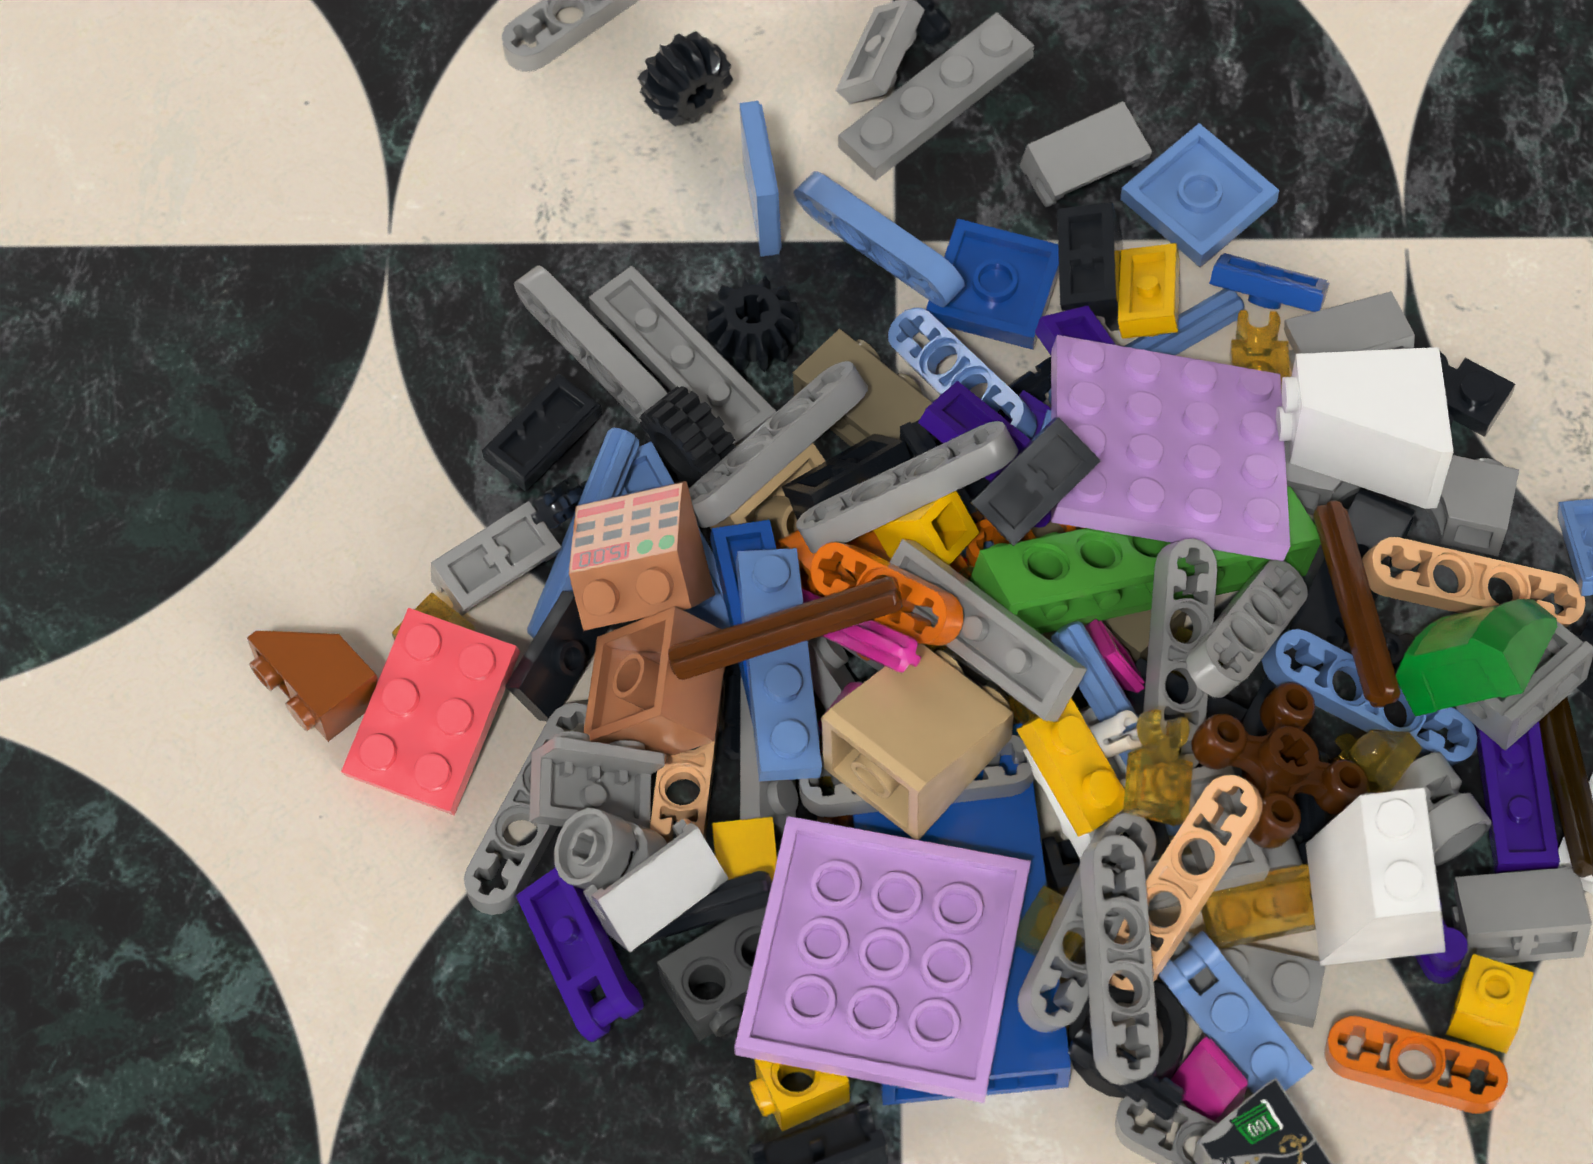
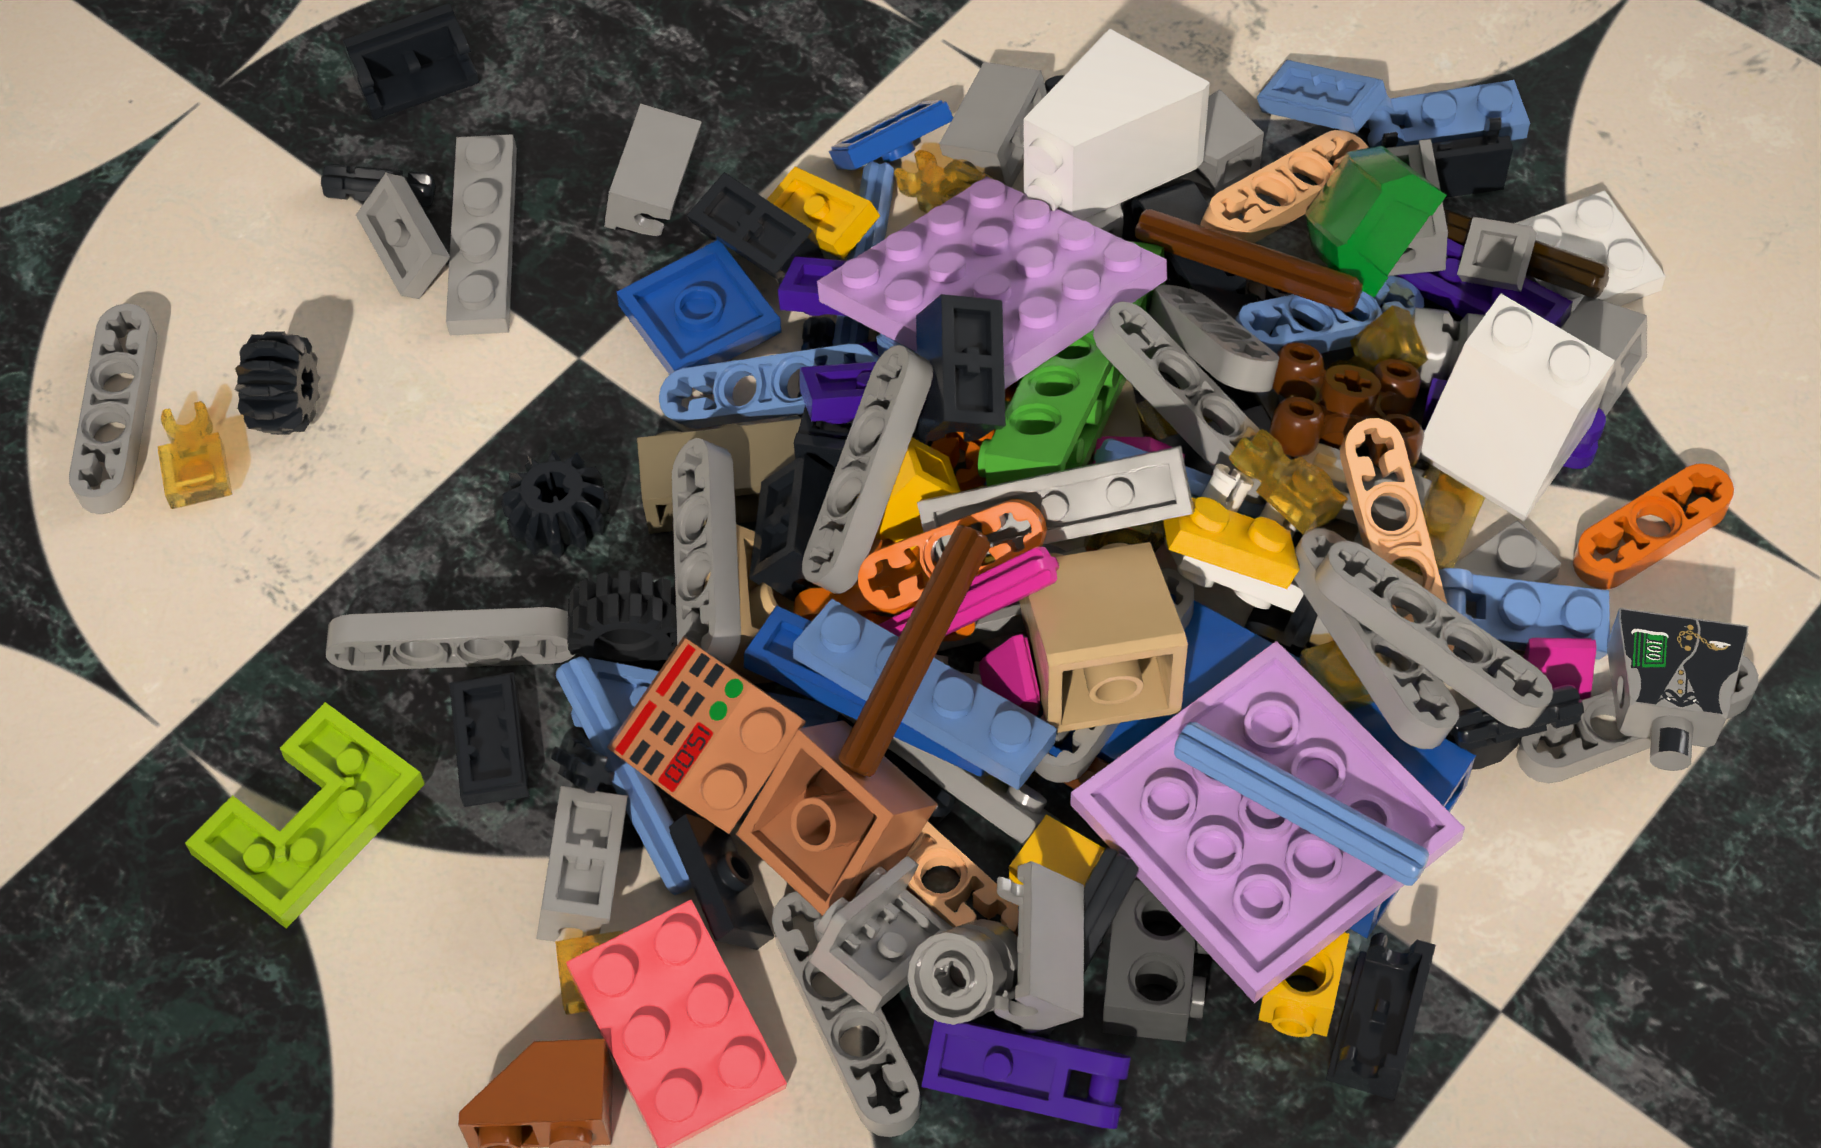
camera: 50 degrees left, 5 degrees down
(353, 394) = (290, 867): none -> lime plate
(589, 85) = (194, 461): none -> clear yellow plate
(678, 352) = (514, 575): light grey plate -> none
(760, 178) = (435, 393): medium blue tile -> none
(879, 239) = (579, 354): medium blue beam -> none
(901, 970) = (1301, 803): none -> medium blue axle
(1199, 194) = (764, 124): medium blue plate -> none
(1490, 1003) = (1650, 434): yellow brick -> none
(1540, 774) = (1497, 254): none -> light grey plate

